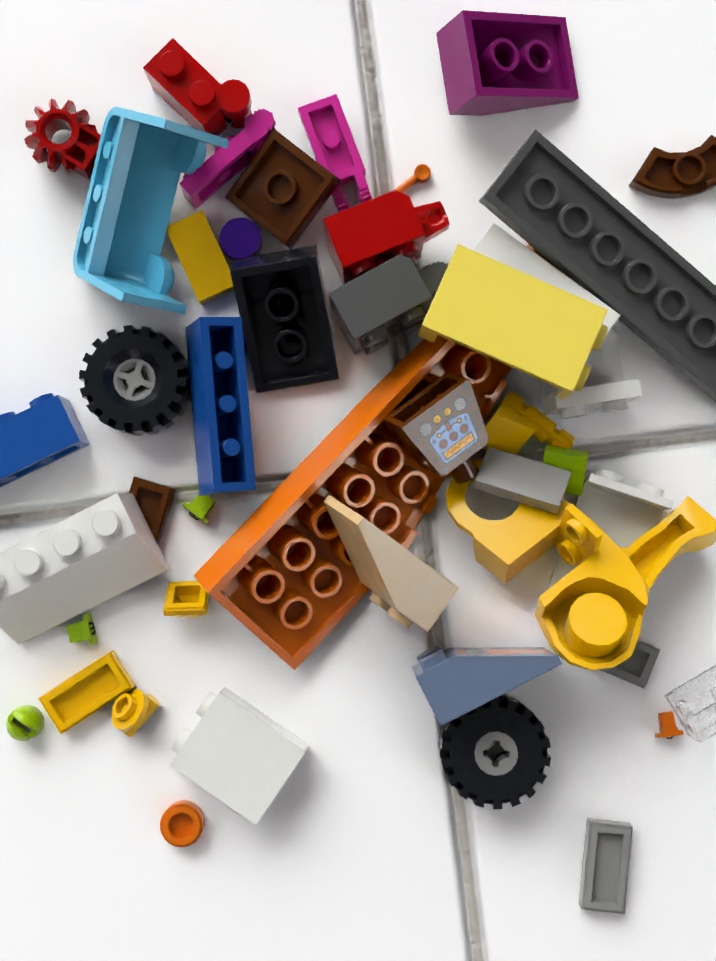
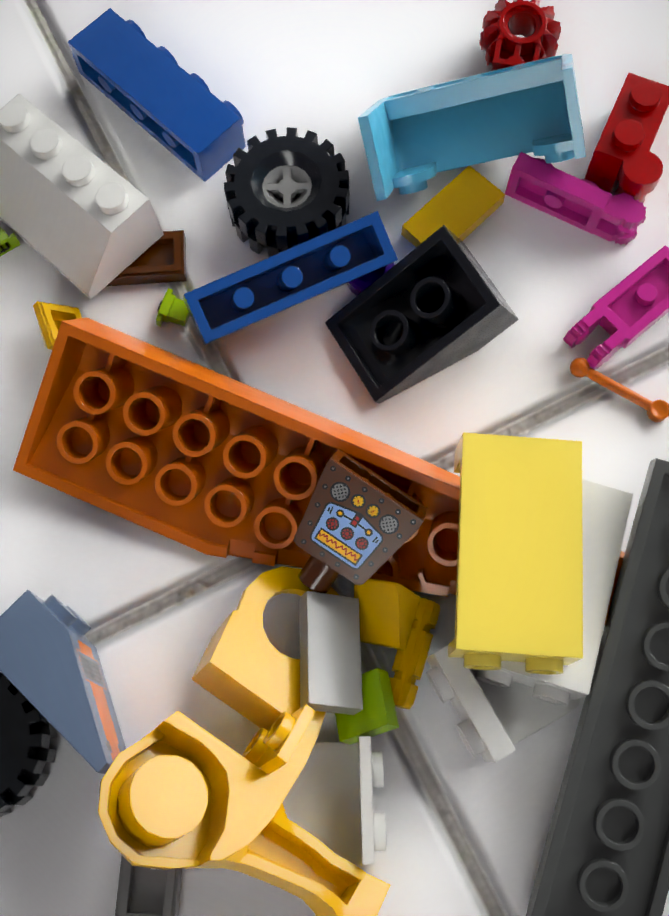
camera: 70 degrees right, 15 degrees down
(240, 238) = (491, 244): dark purple tile -> none
(282, 188) = (566, 264): reddish brown tile -> none
(380, 231) = (557, 375): red hinge -> none
(385, 302) = (474, 392): dark grey hinge -> none
(398, 578) = (158, 531): tan slope -> none

